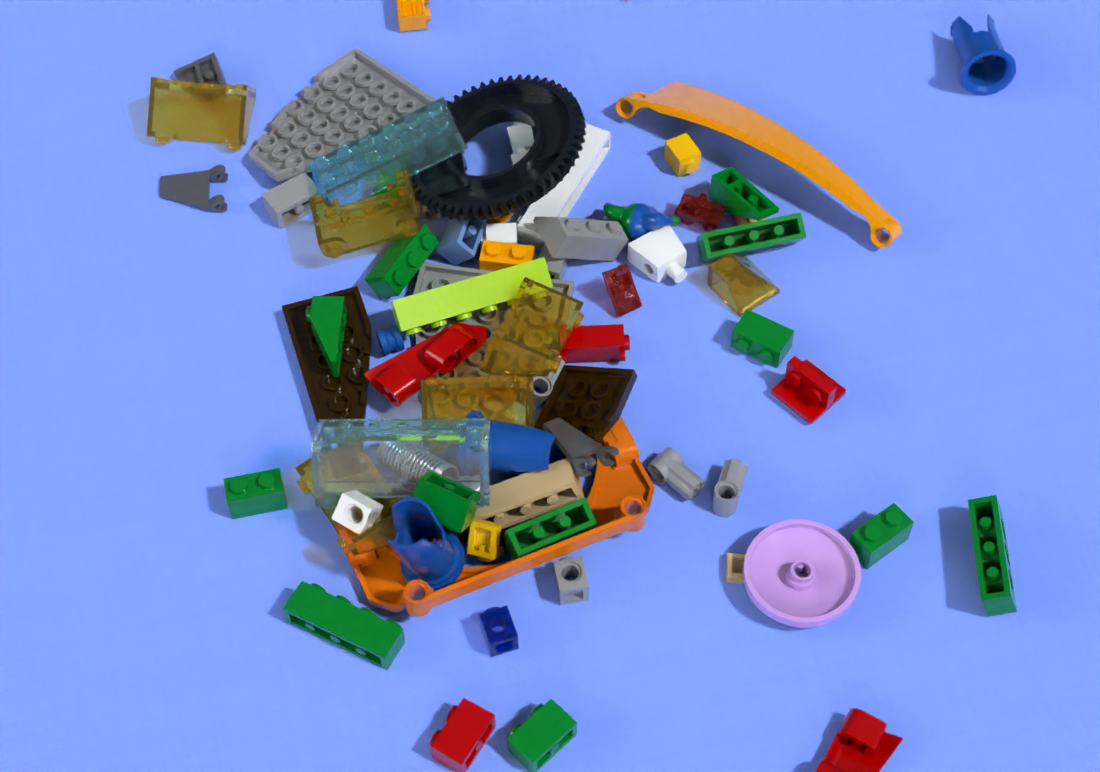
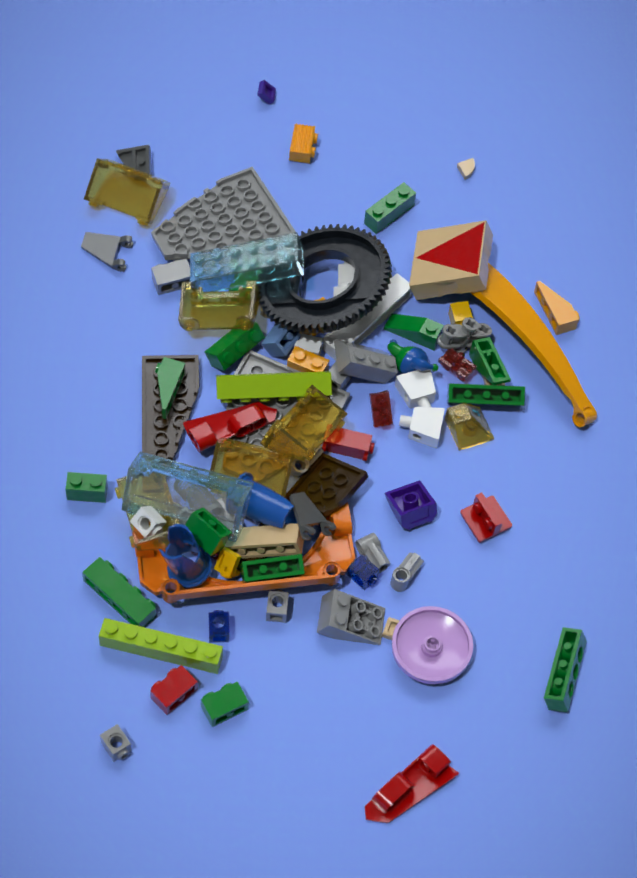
camera: 10 degrees right, 5 degrees up
(390, 340) = (209, 401): blue wheel -> none
(424, 680) = (161, 645): none -> lime brick
(548, 49) = (389, 208): none -> brick
(631, 184) = (416, 329): none -> green slope
(649, 88) = (451, 260): none -> tan tile
(672, 503) = (363, 572): none -> clear blue brick
(676, 569) = (350, 618): none -> light grey slope
(685, 296) = (424, 425): none -> white torso
(695, 174) = (461, 336): none -> light grey axle
(706, 398) = (412, 505): none -> dark purple slope
(762, 338) = (466, 471): green brick -> none
(799, 116) = (557, 309): none -> light orange slope
(881, 535) = (495, 634): green brick -> none

